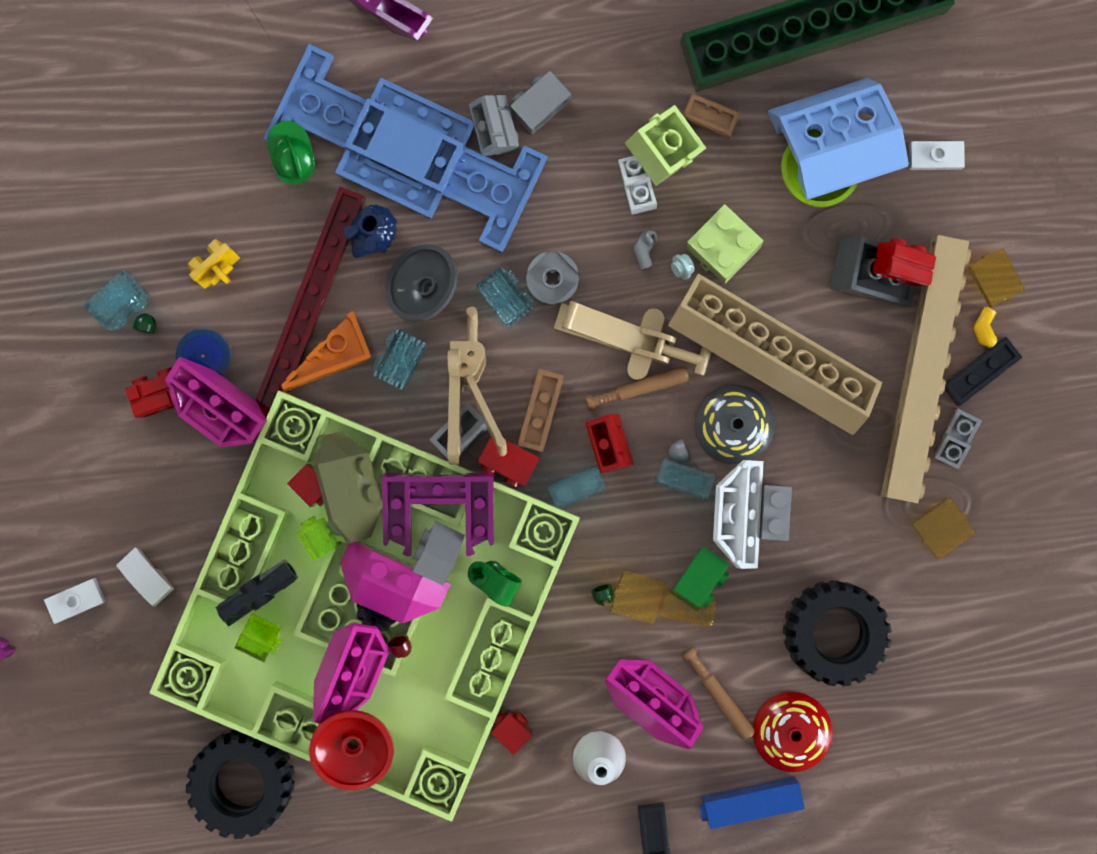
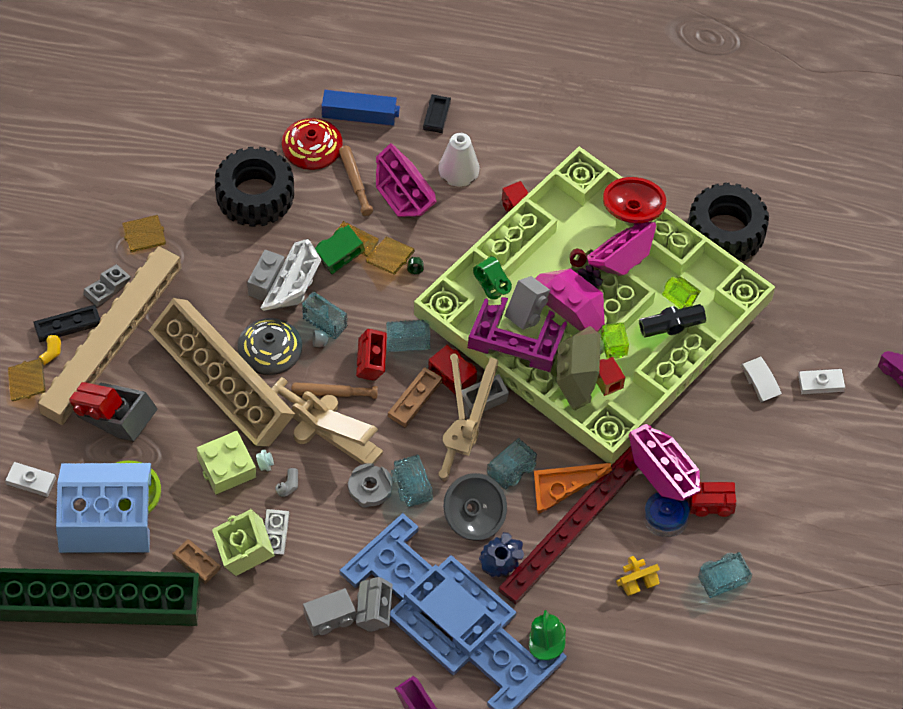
camera: 165 degrees left, 30 degrees down
(144, 323) = (708, 552): dark green hinge -> none

